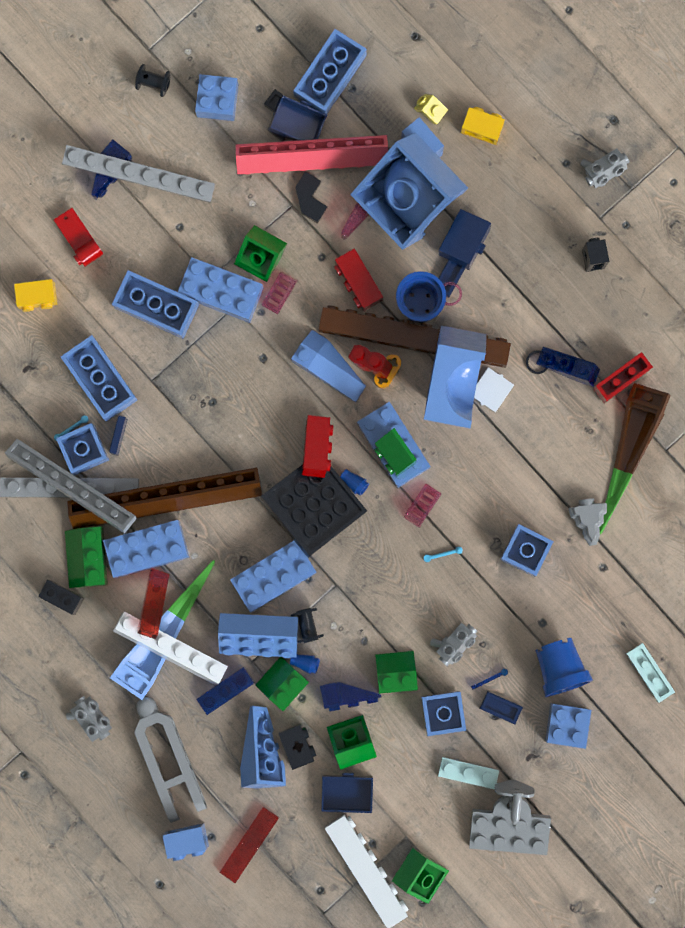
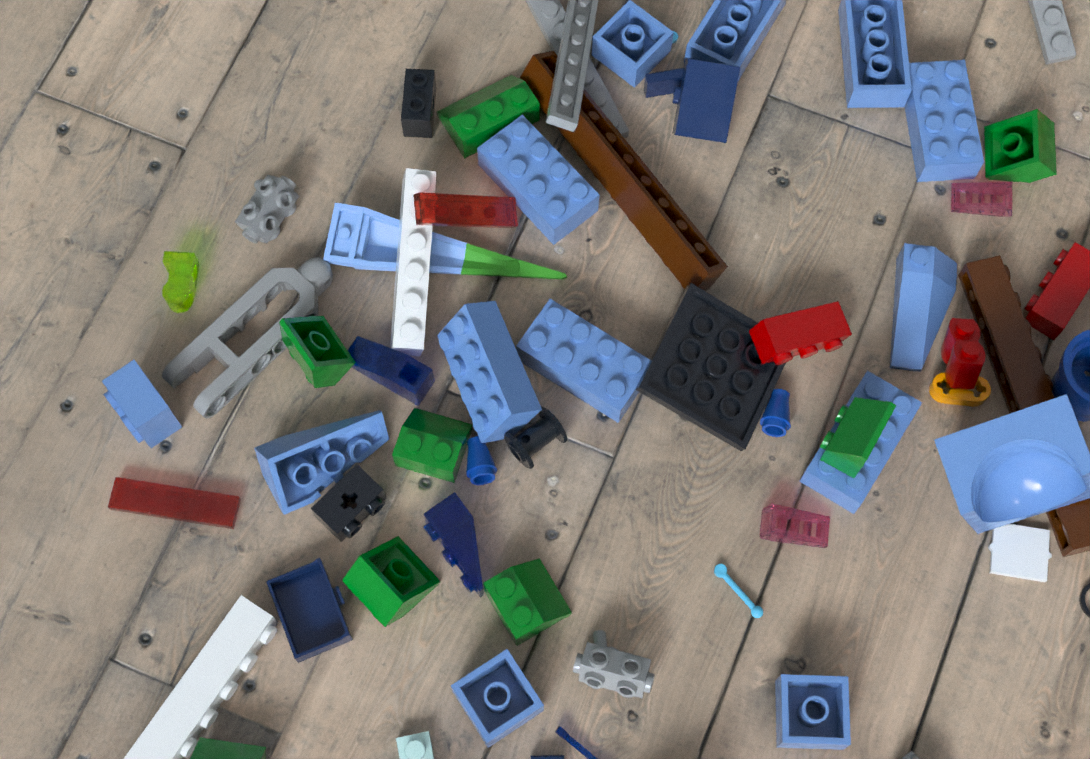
camera: 60 degrees right, 15 degrees down
(111, 786) = (182, 280): none -> clear neon green leg
(144, 425) = (705, 100): none -> dark blue container
(198, 726) = (316, 349): none -> green slope

